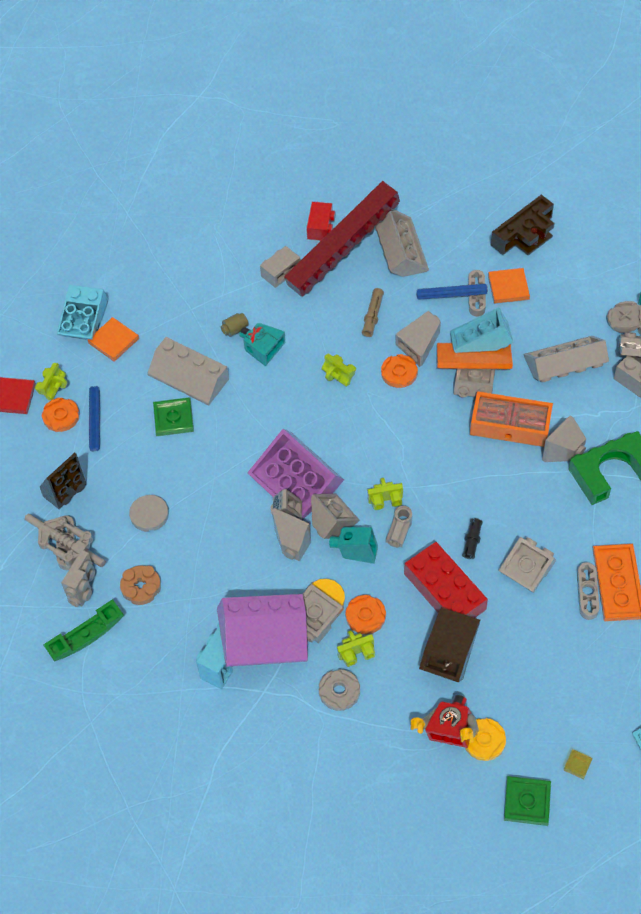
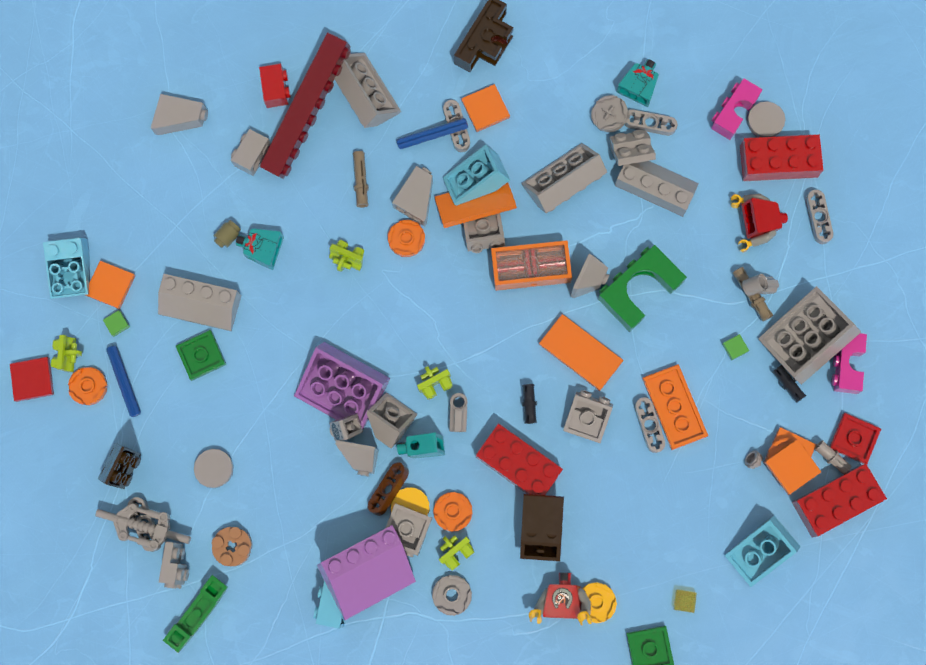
camera: 15 degrees left, 20 degrees up
(106, 371) = (116, 323): none -> bright green tile
(225, 222) = (177, 114): none -> light grey slope
(300, 581) = (380, 491): none -> reddish brown beam
(537, 509) = (581, 352): none -> orange tile

